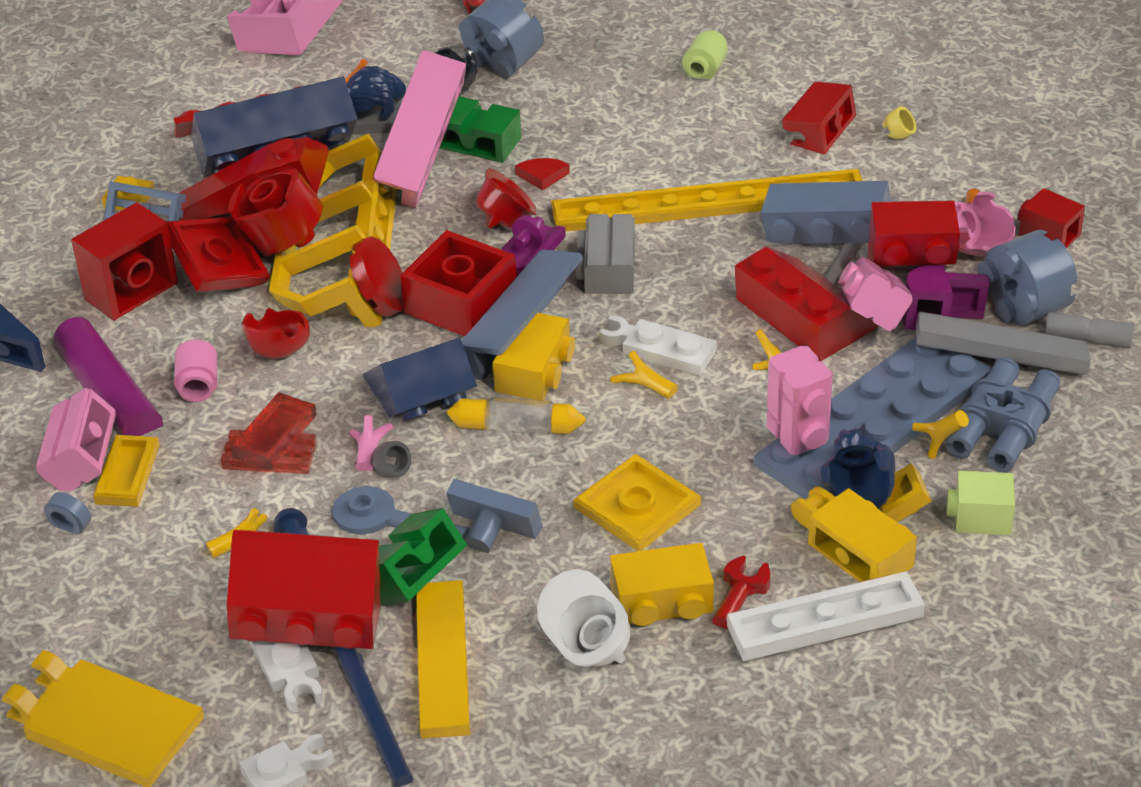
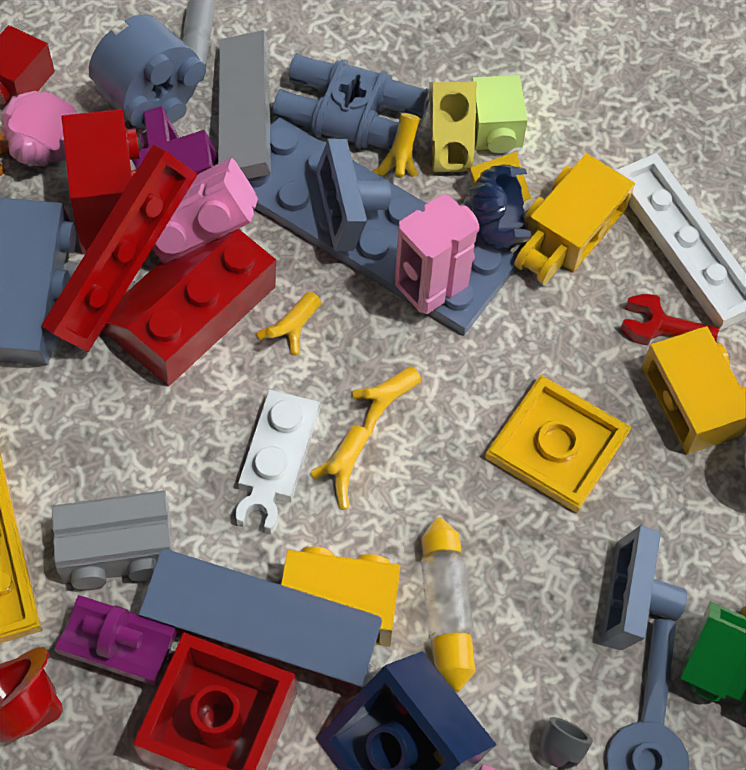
camera: 105 degrees left, 20 degrees up
(702, 405) = (385, 393): none -> yellow bar
(834, 236) = (120, 248): none -> red plate
(882, 375) = (347, 197): none -> sand blue tile
(972, 450) = (452, 125): none -> light yellow leg

